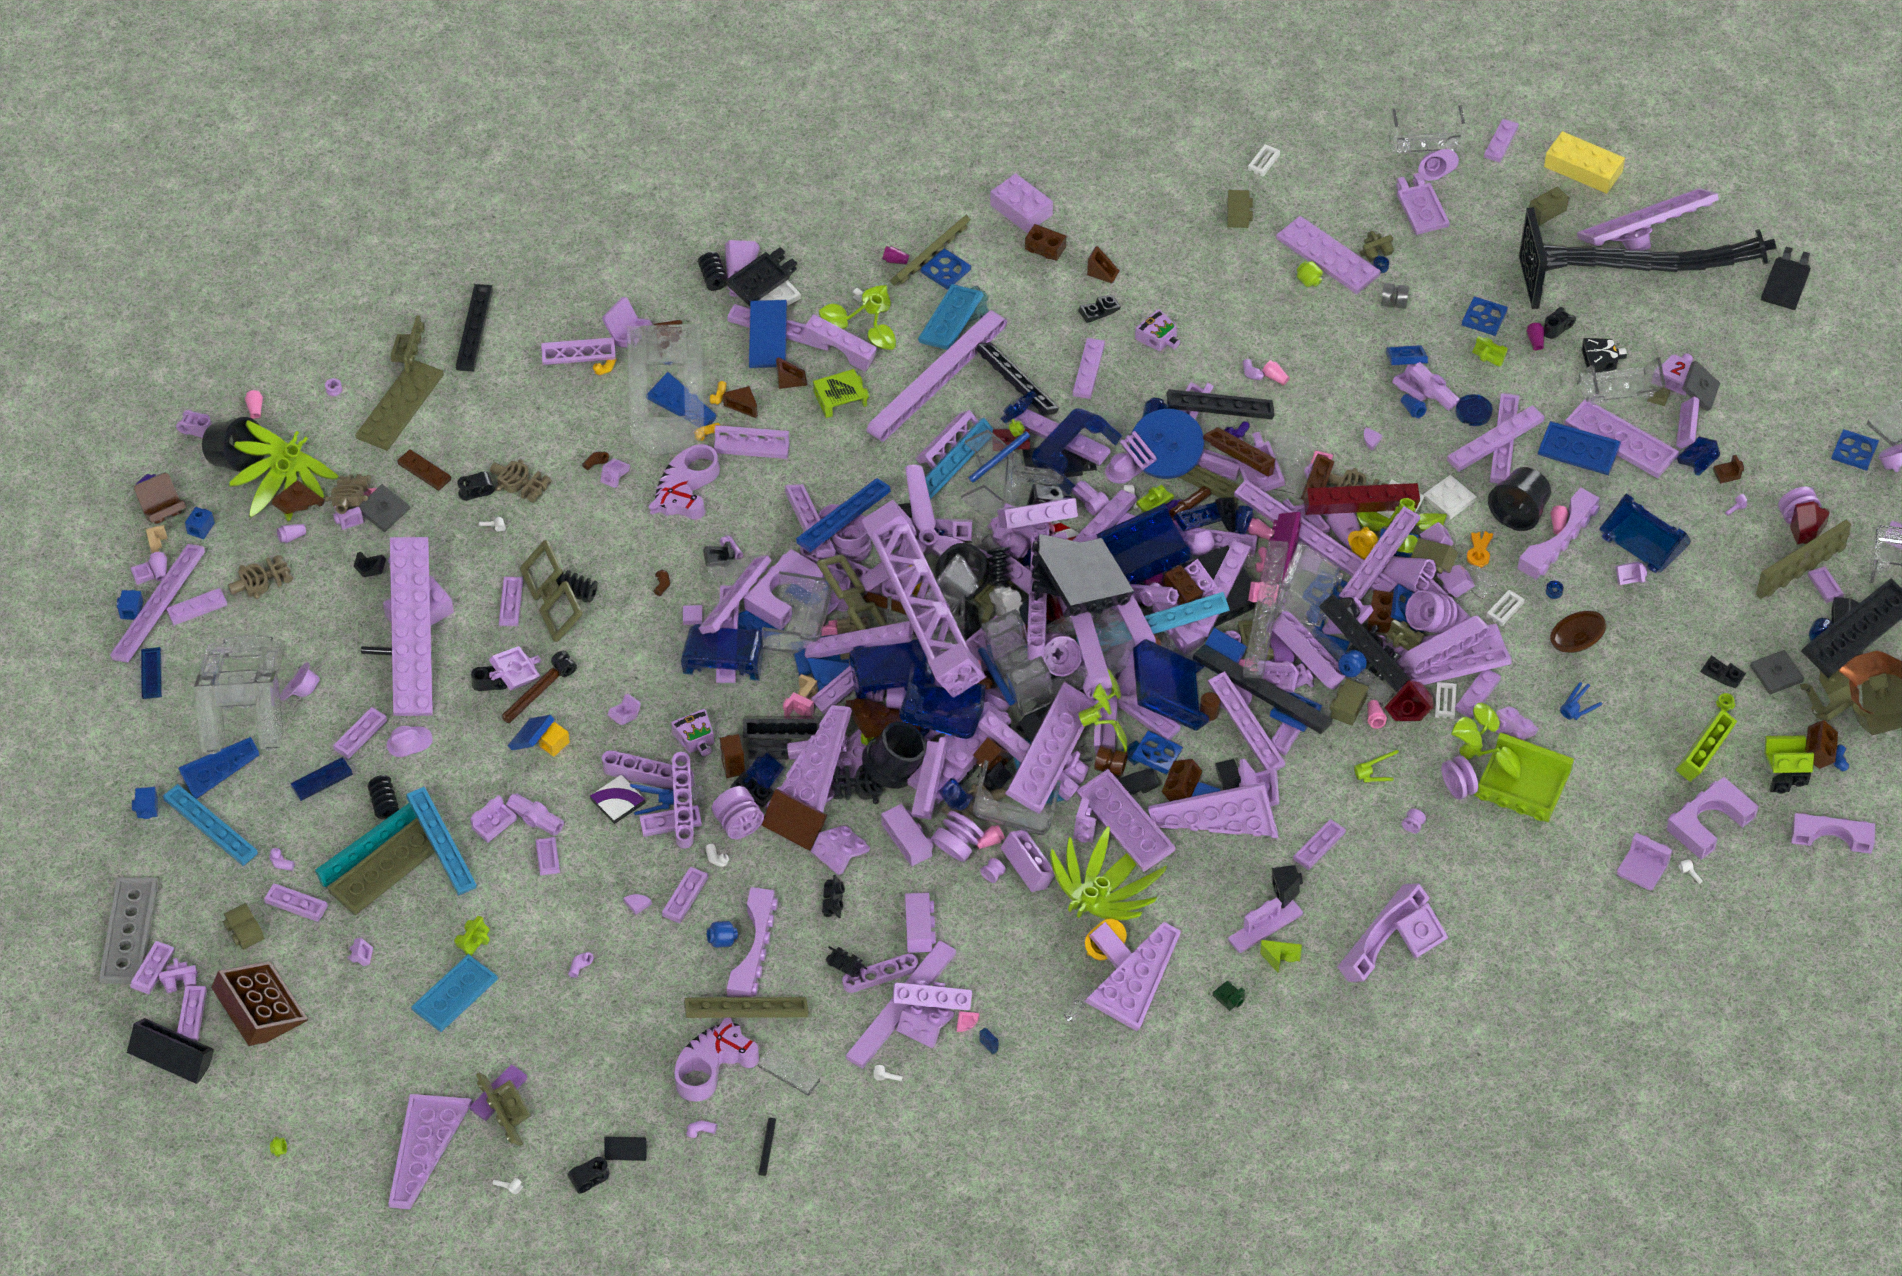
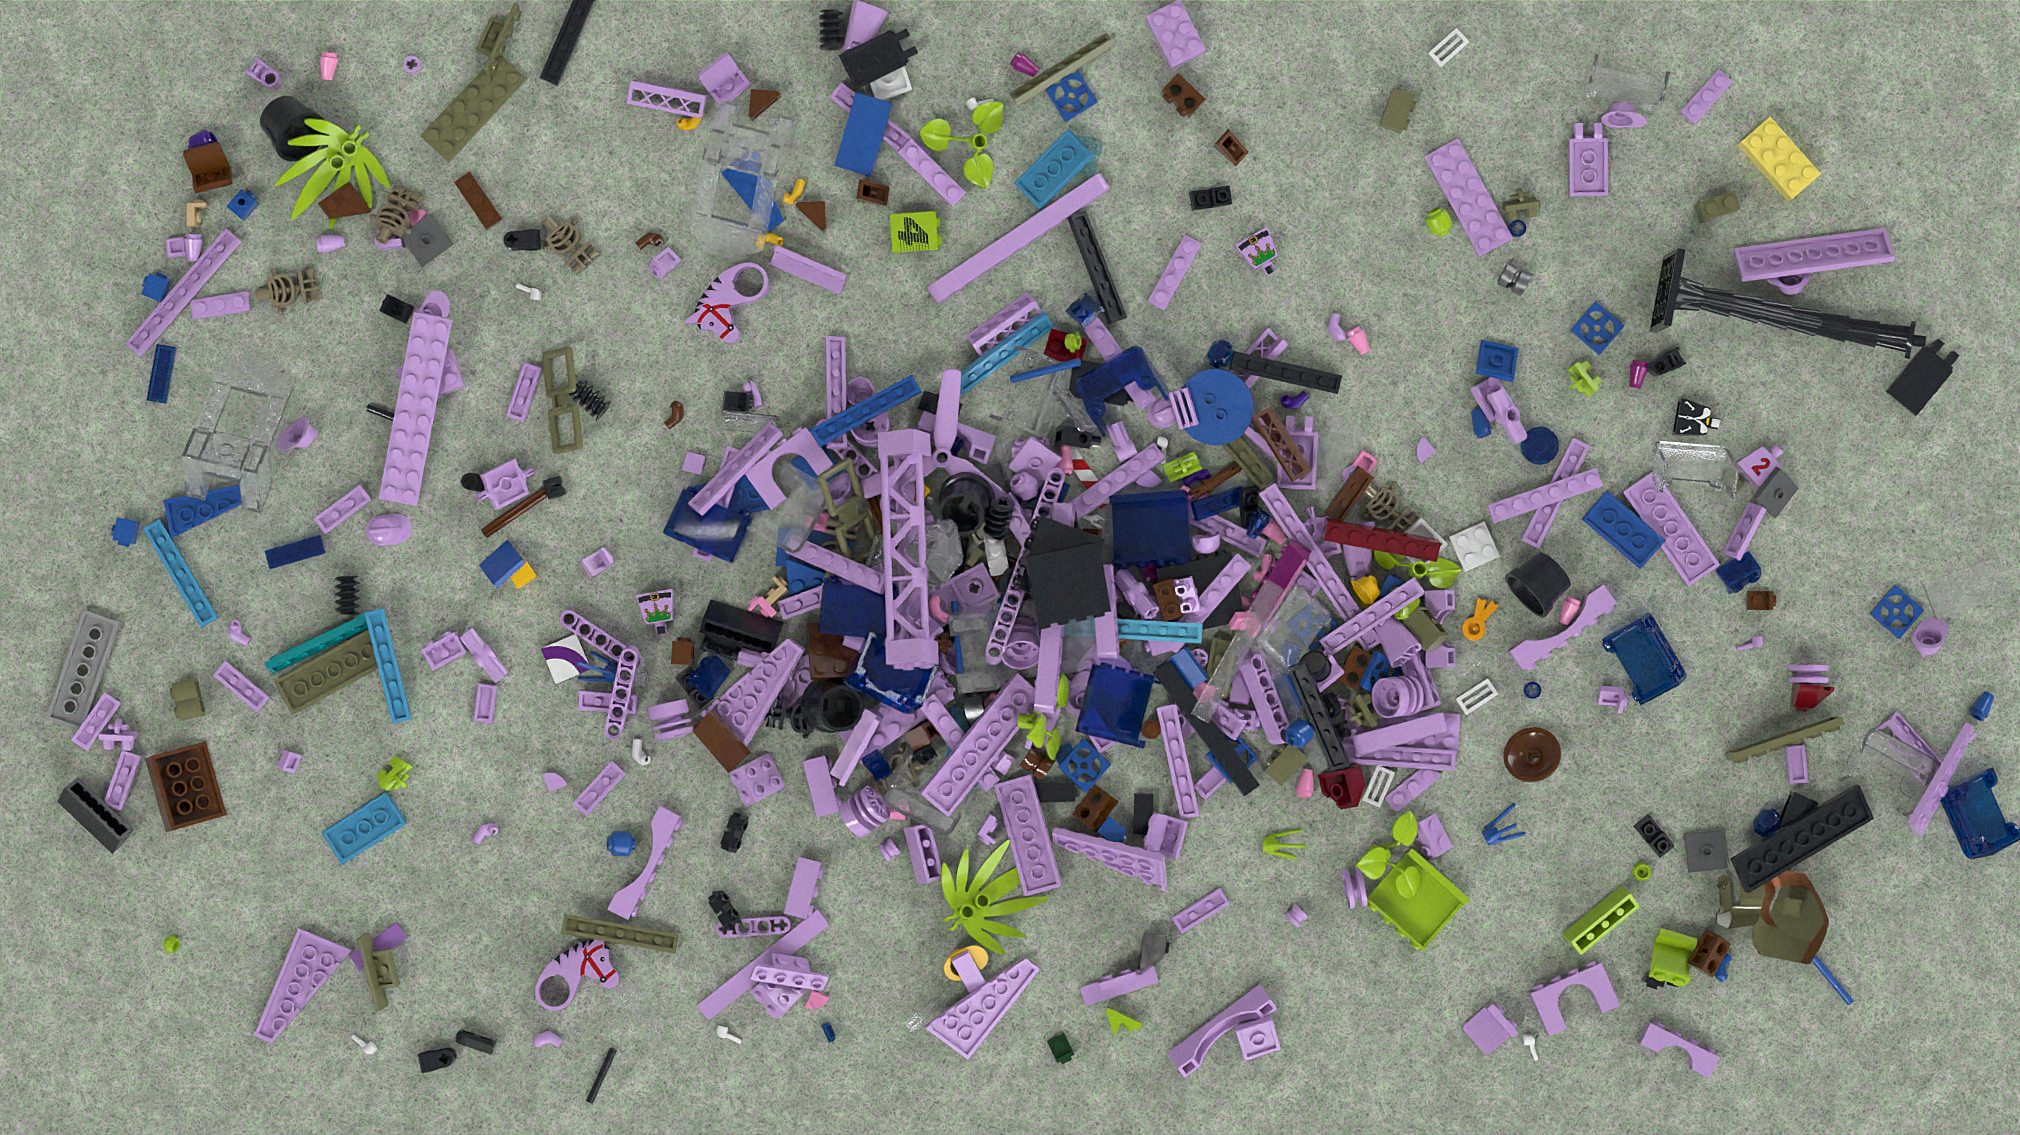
camera: 15 degrees right, 35 degrees up
(1037, 513) = (1034, 464): lavender arch -> none

